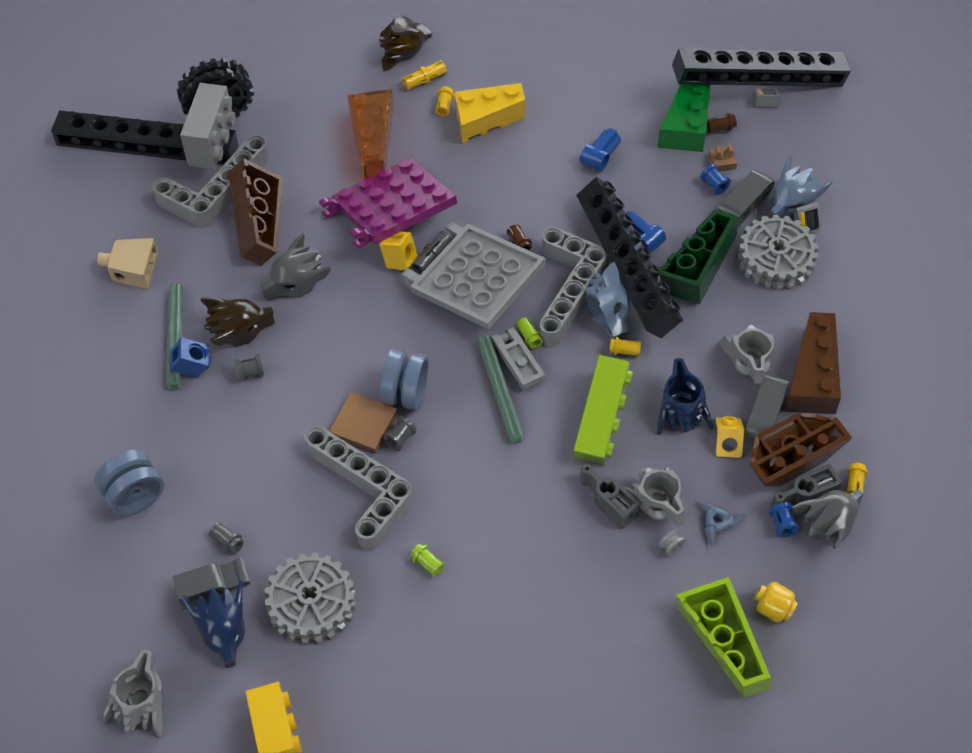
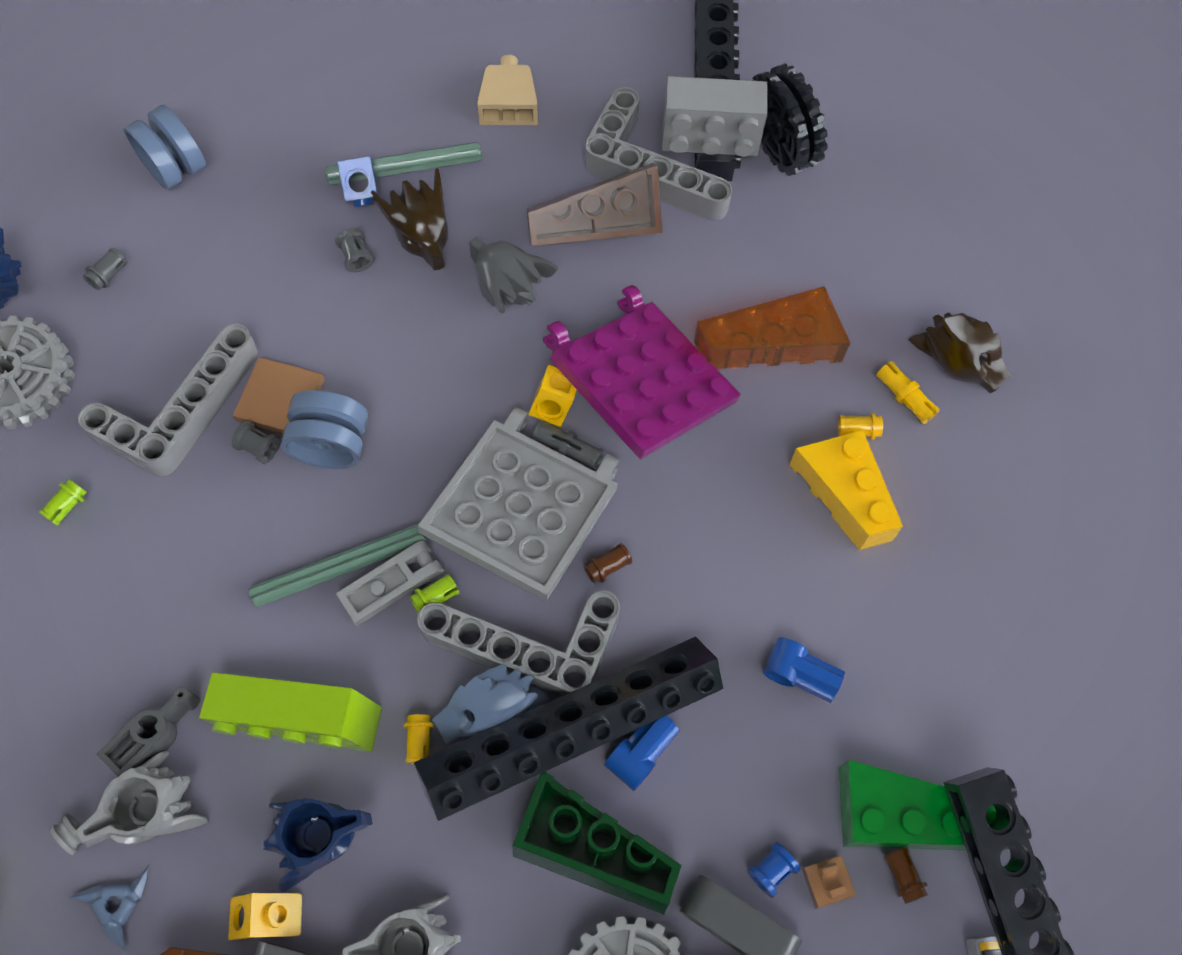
camera: 80 degrees right, 10 degrees up
(202, 579) = (41, 260): dark grey piece -> none

